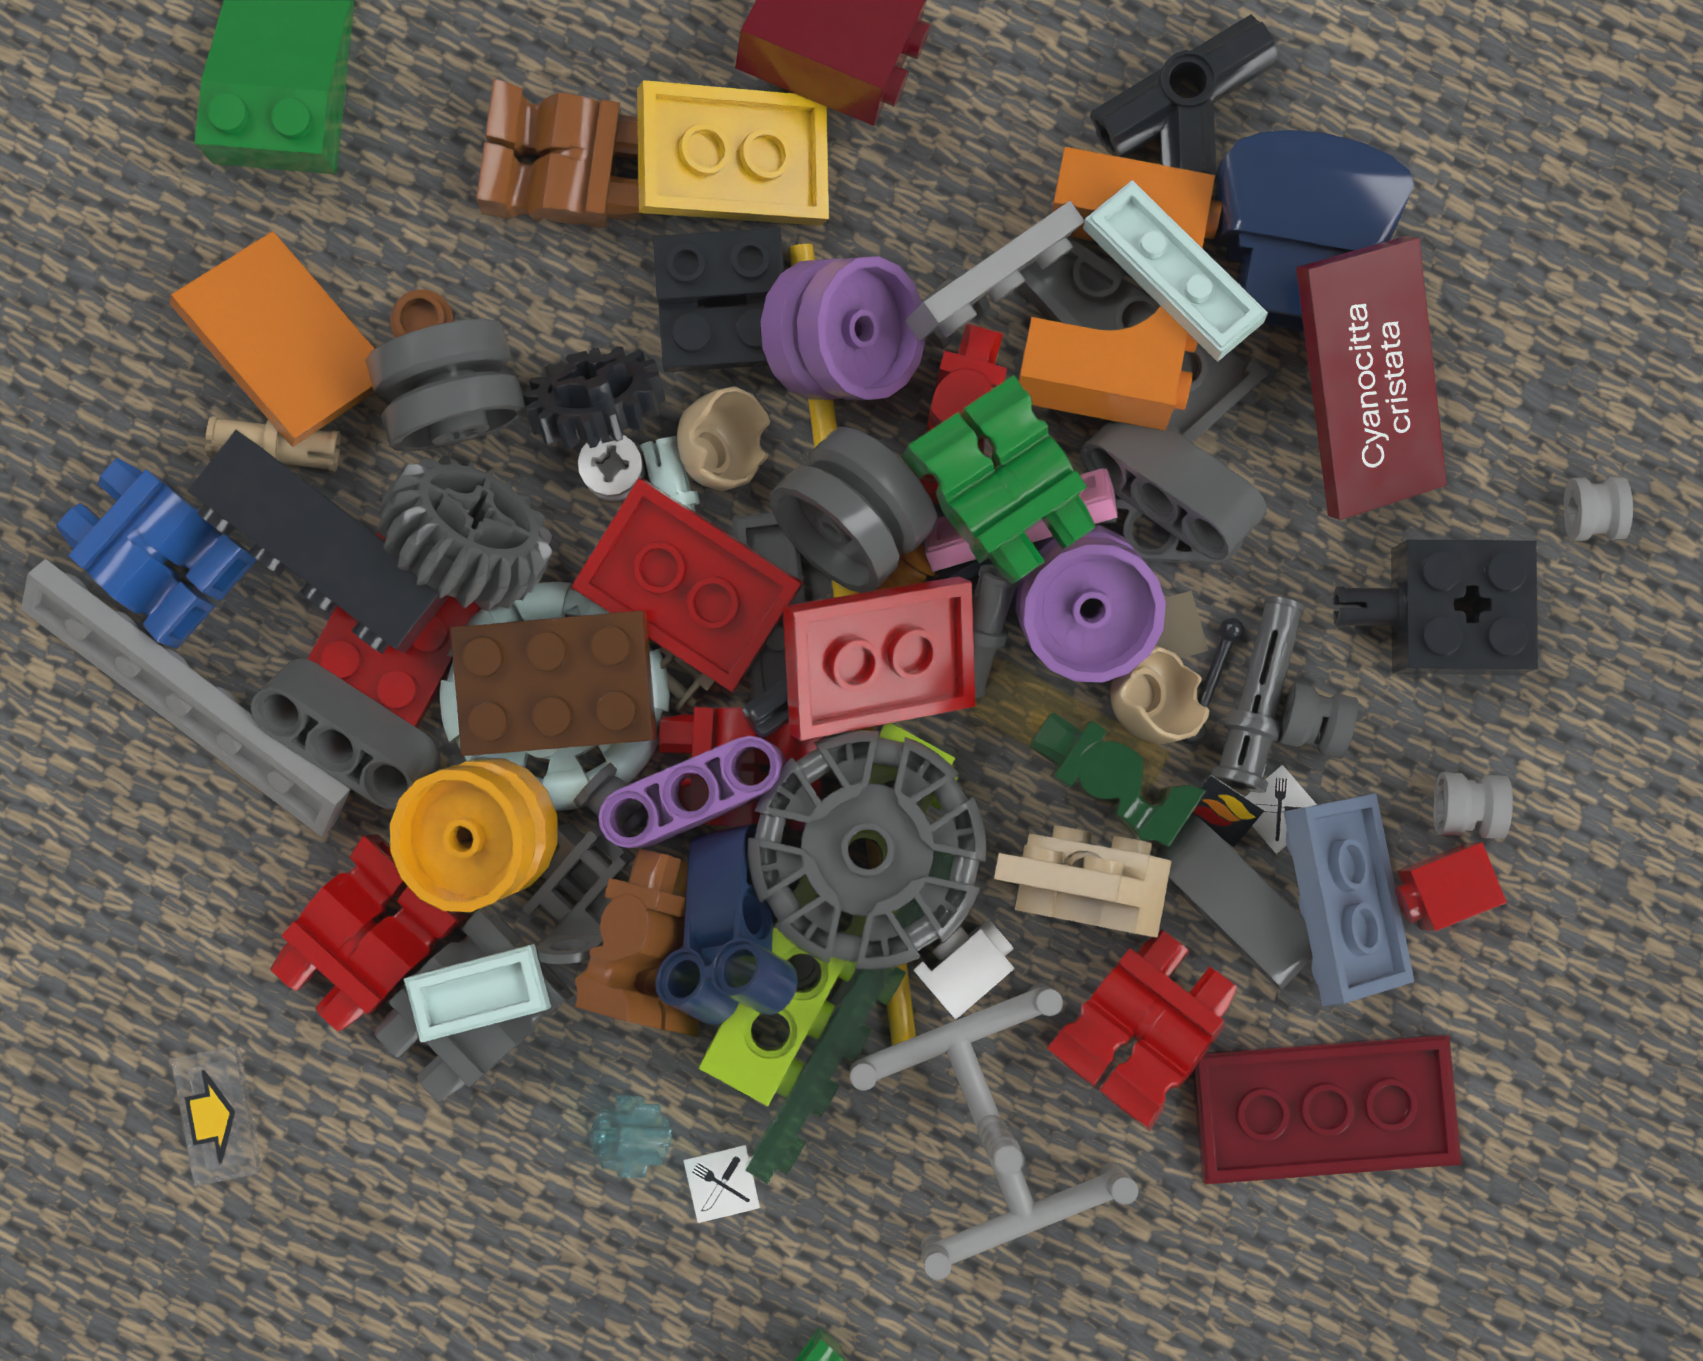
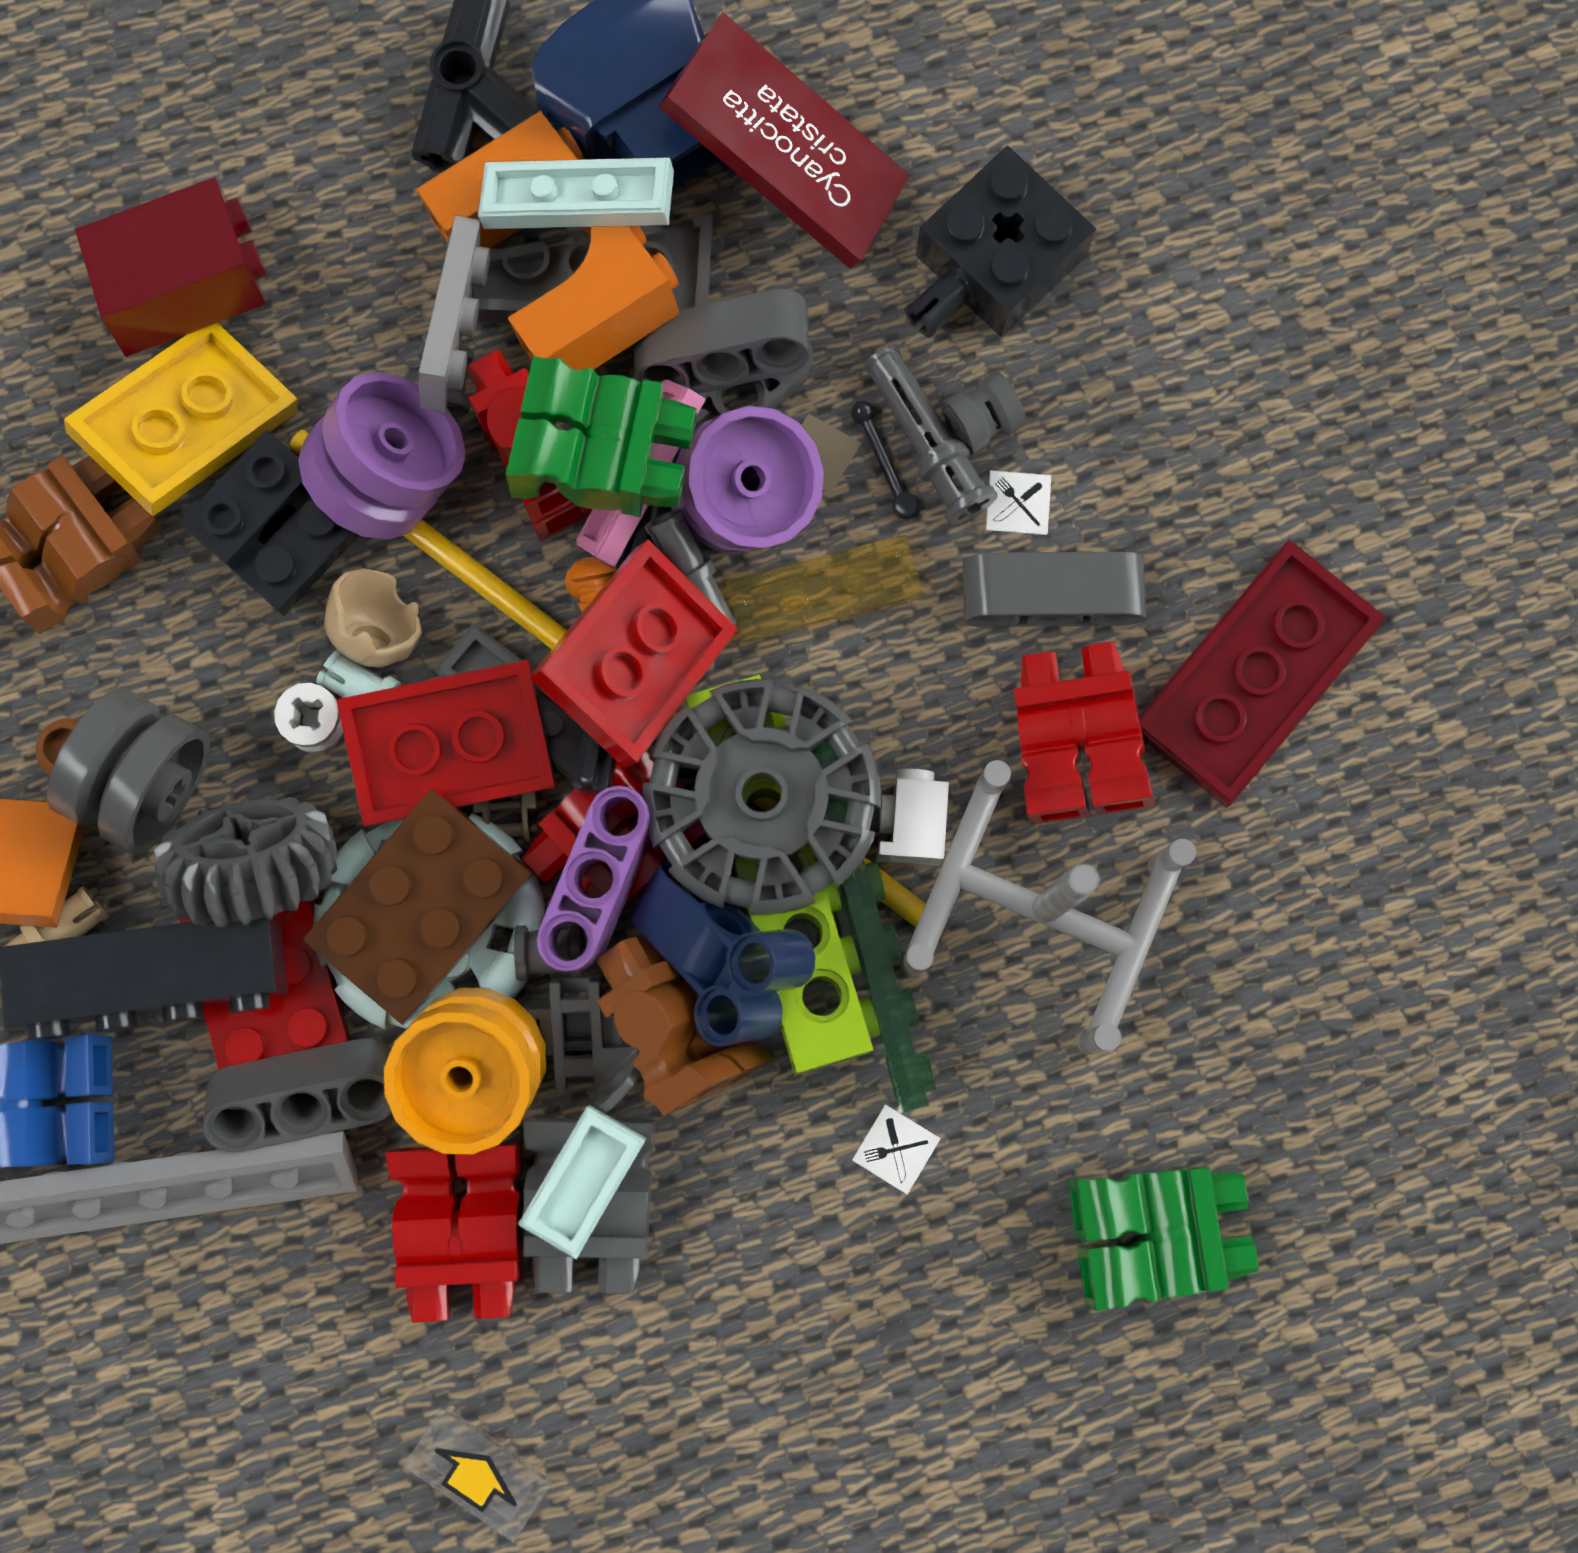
camera: 45 degrees left, 5 degrees down
(594, 397) = (248, 677): black gear -> none
(630, 1136) = (797, 1177): clear light blue gear -> none
(853, 509) = (513, 570): dark grey wheel -> none
(1088, 882) = (959, 645): tan brick -> none
(1113, 773) = (882, 576): dark green hips -> none
(1159, 699) = (860, 503): tan hair -> none
(1226, 811) = (981, 533): black sticker -> none
(1348, 899) = (1126, 509): sand blue plate -> none
(1449, 887) = (1187, 437): red brick -> none
(1468, 805) = (1145, 368): light grey wheel -> none
(1598, 508) = (1026, 92): light grey wheel -> none

